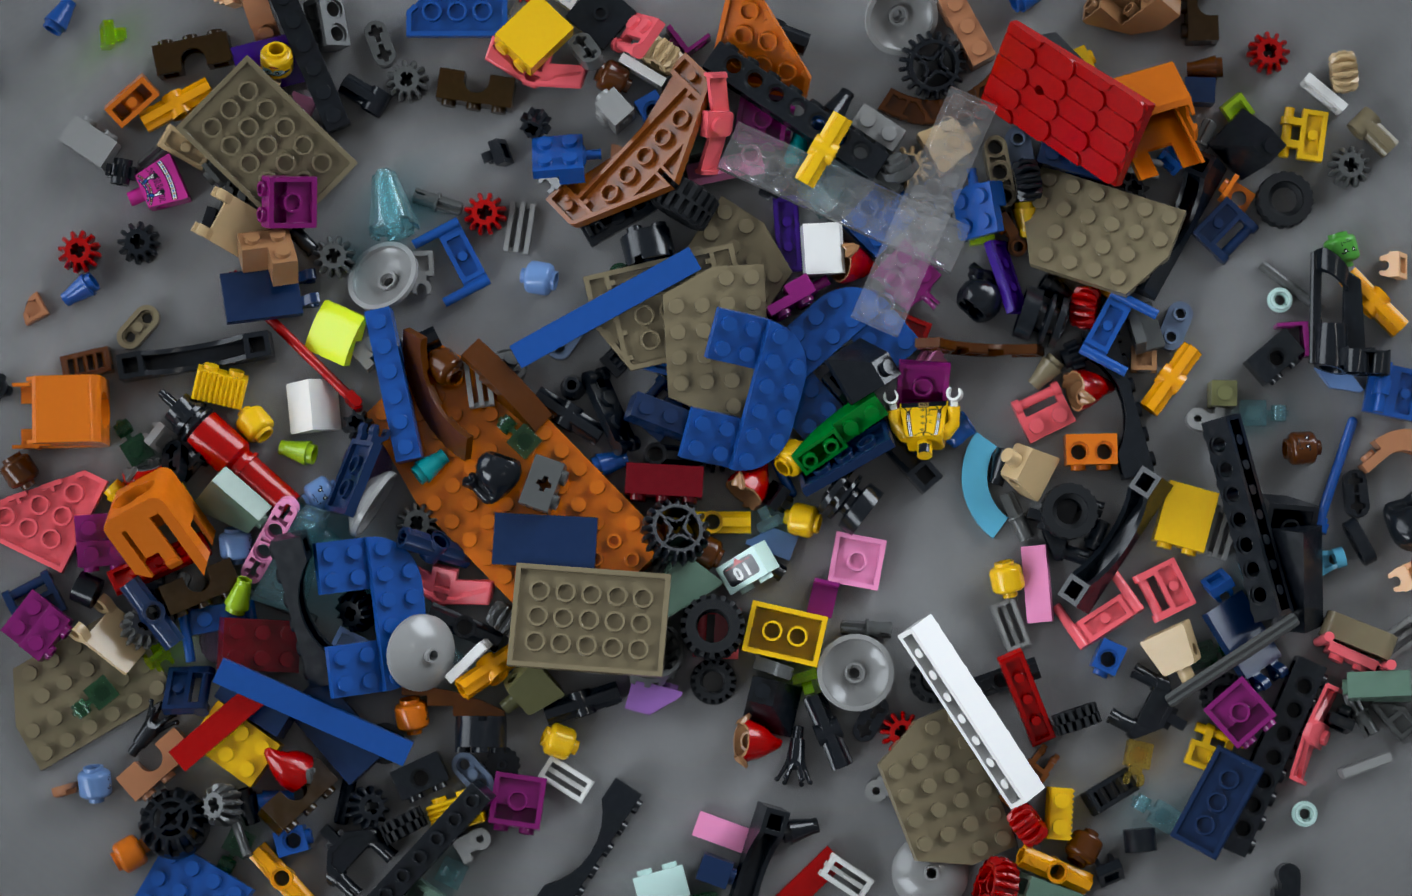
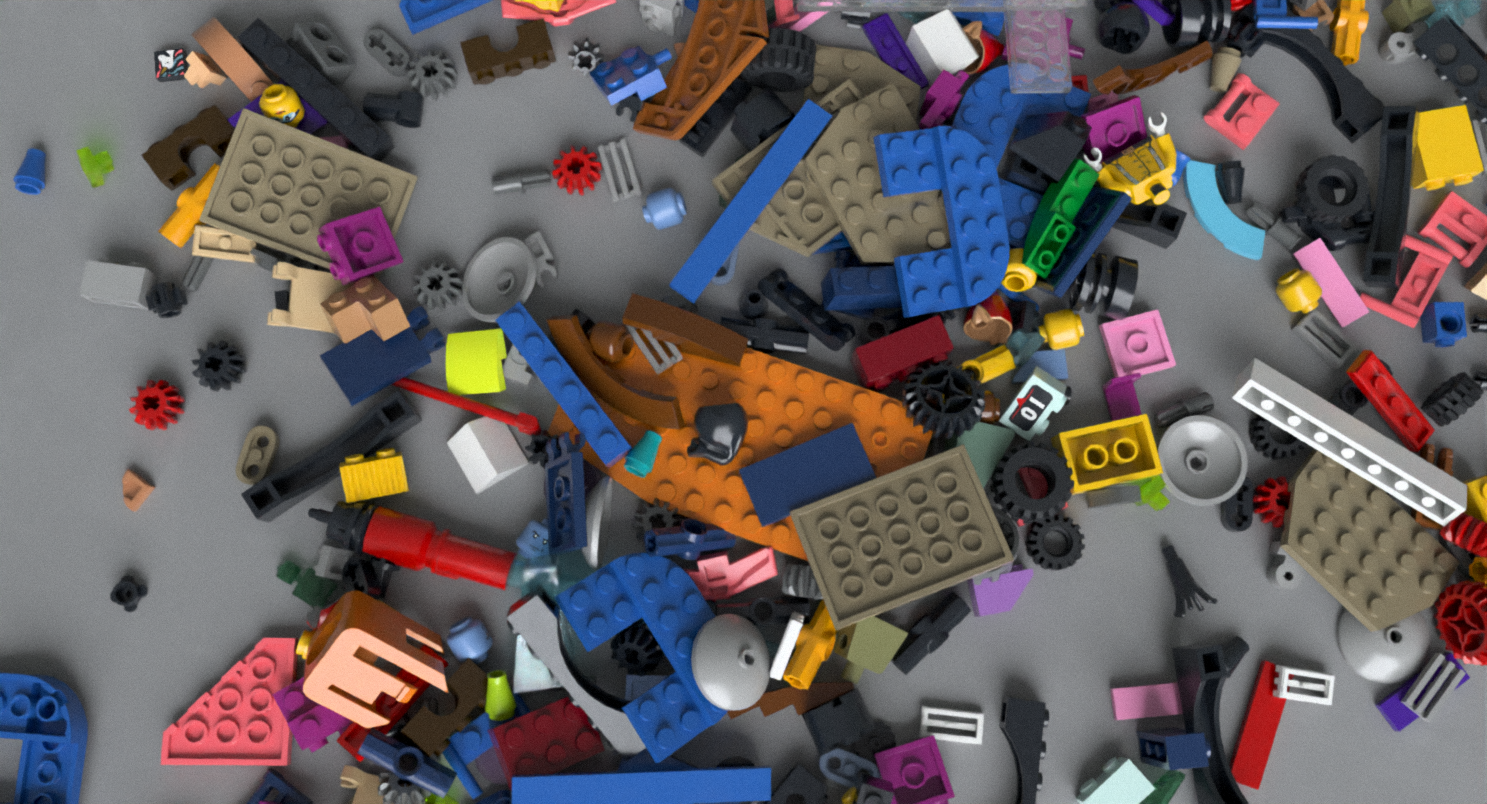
camera: 30 degrees left, 5 degrees down
(19, 471) = (190, 673): reddish brown head -> none
(66, 411) = (213, 581): orange piece -> none
(82, 288) = (175, 444): blue cone -> none
(87, 589) = (323, 770): black piece -> none
(106, 358) = (219, 506): reddish brown slope -> none
(132, 100) = (144, 220): orange brick -> none
(160, 186) = (215, 296): dark pink torso -> none
(233, 502) = (445, 594): sand green slope -> none
(255, 424) = (431, 499): yellow head -> none
(266, 537) = (498, 614): bright pink beam -> none
(299, 451) = (494, 506): lime cone -> none
(303, 240) = (397, 283): black pin -> none
(390, 208) = (474, 208): clear light blue cone -> none
(411, 715) = (751, 736): orange head -> none
(462, 257) = (573, 225): blue plate -> none
(498, 153) = (560, 105): black tile -> none
(523, 440) = (732, 378): clear green plate -> none
(532, 493) = (769, 398): dark grey brick -> none
(559, 741) = (925, 687): yellow head -> none
(609, 462) = (831, 362): blue cone -> none
(613, 363) = (785, 259): black tile -> none
(758, 741) = (1129, 587): hat -> none
(773, 704) = (1126, 540): black slope -> none
(828, 731) = (1202, 537): black piece -> none
(1028, 470) = (1264, 171): tan torso -> none
(1085, 388) = (1271, 67): hat -> none
(1089, 444) = (1309, 123): orange brick -> none

